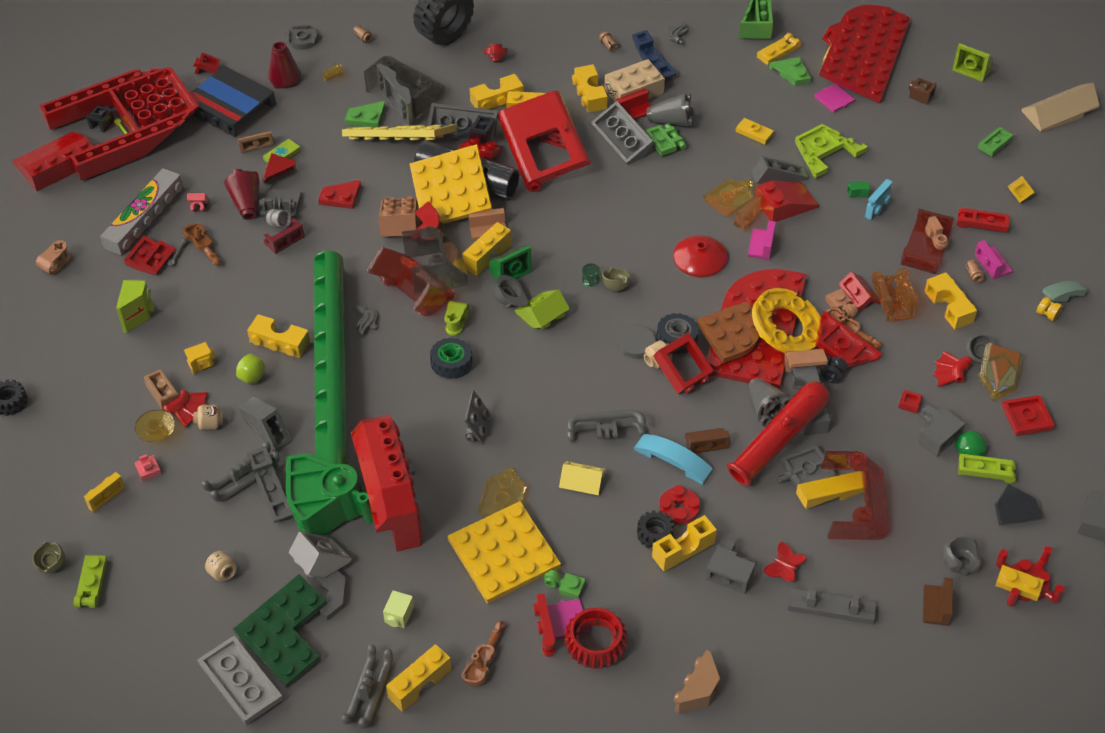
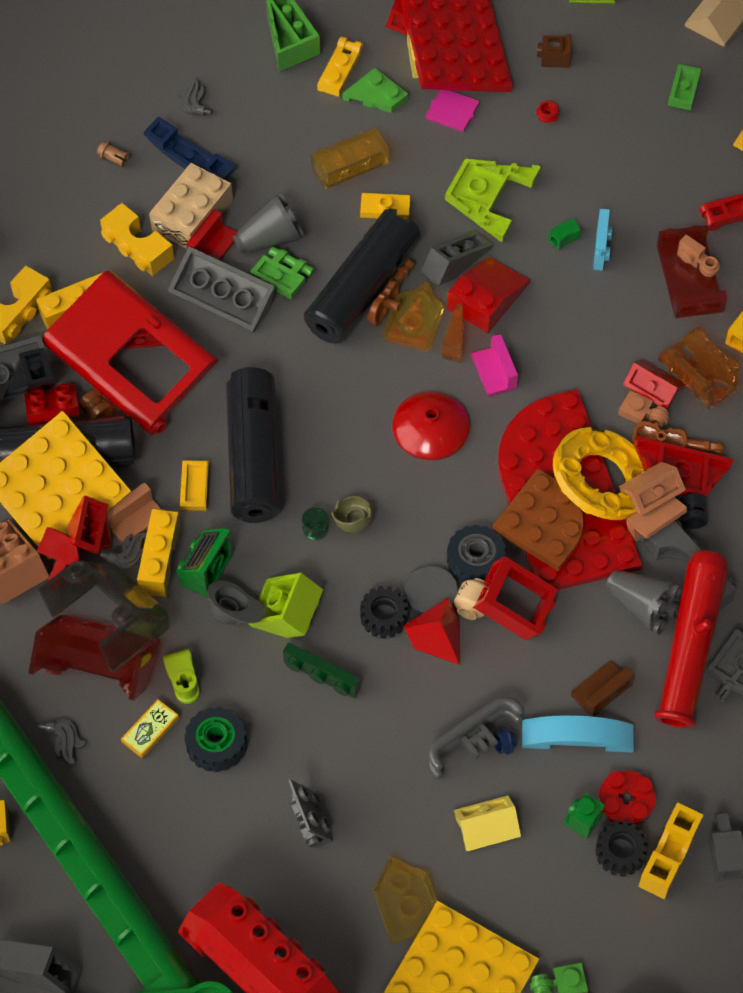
camera: 30 degrees left, 10 degrees up
(418, 336) = (150, 728): none -> tile
(456, 215) = (90, 526): none -> red slope
(464, 244) = (130, 552): none -> dark grey piece
(505, 157) = (94, 405): none -> clear orange wheel
(534, 226) = (194, 485): none -> yellow tile
(538, 351) = (321, 670): none -> dark green plate
(581, 216) = (253, 445): none -> black piece
(599, 329) = (382, 626): none -> black tyre
(624, 362) = (436, 632): none -> red slope
(624, 439) = (506, 741): none -> dark blue plate
(643, 495) = (584, 815): none -> green brick
(710, 157) = (361, 277): none -> black piece
(712, 178) = (386, 299): none -> dark orange piece
(749, 97) = (350, 158): none -> clear yellow brick
(813, 341) = (653, 487): none -> nougat panel
(894, 121) = (550, 108): none -> red plate

